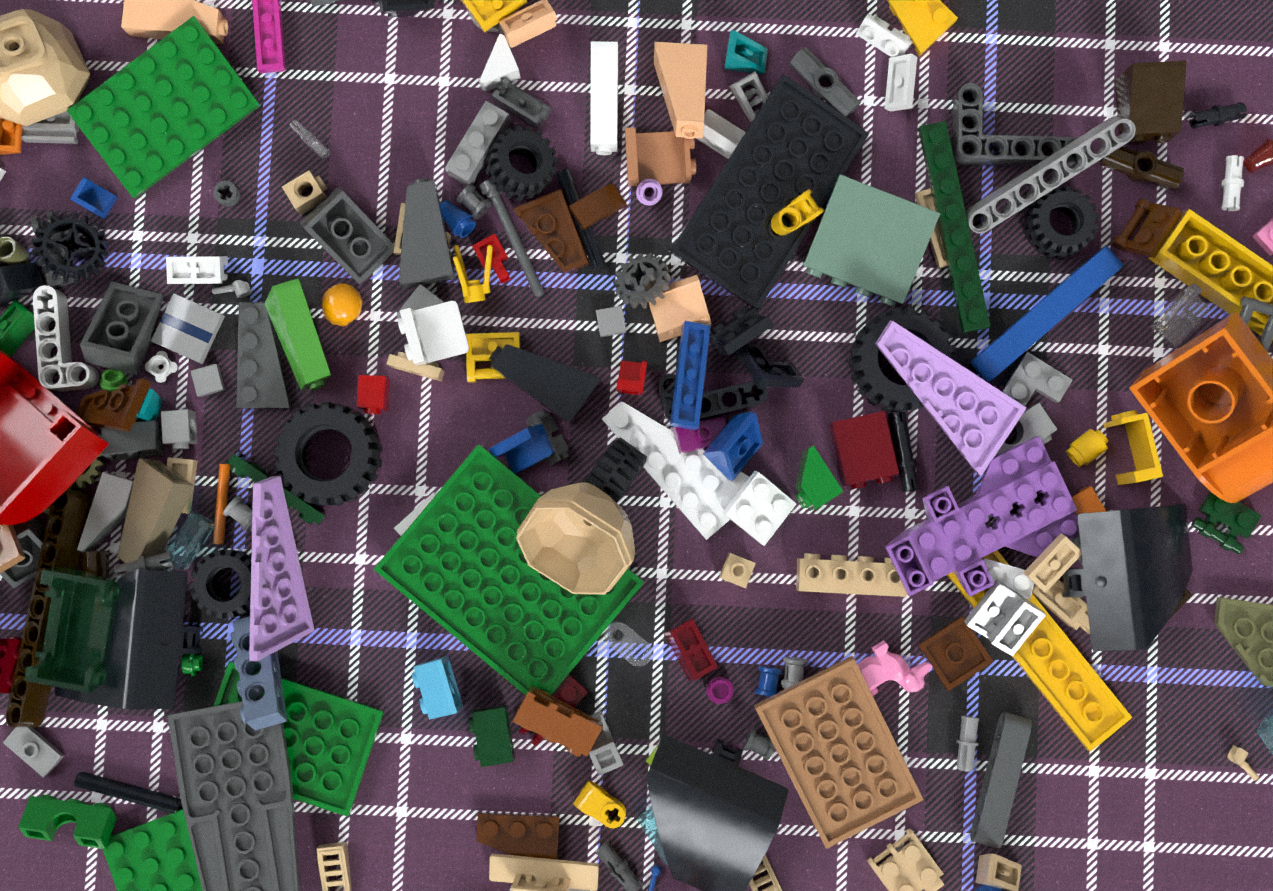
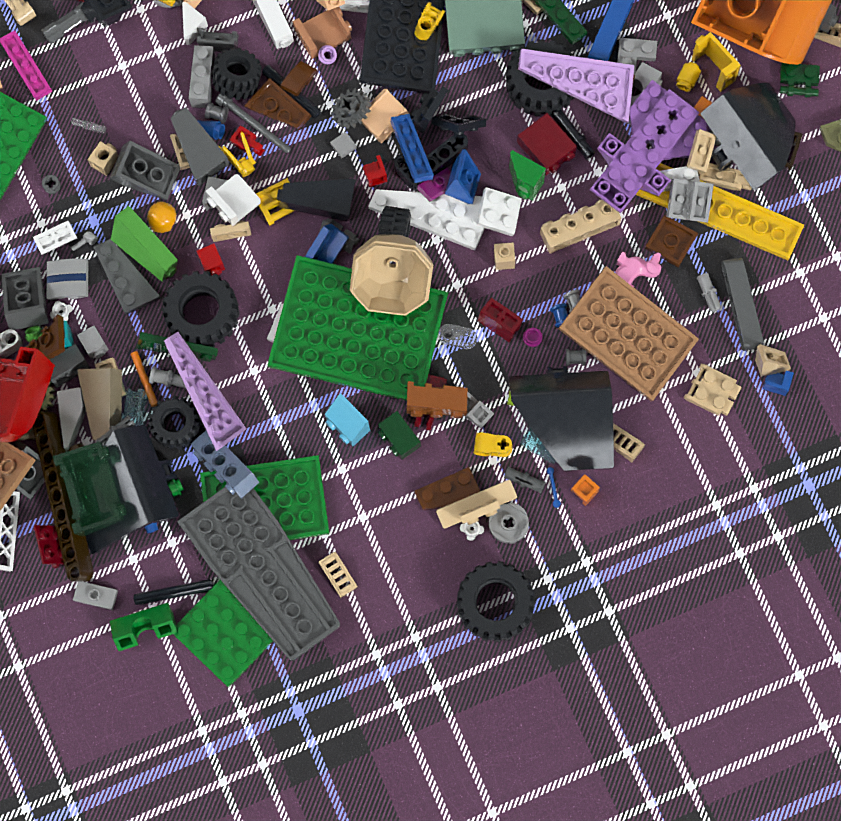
camera: 20 degrees left, 10 degrees down
(207, 380) = (96, 305): light grey tile -> none

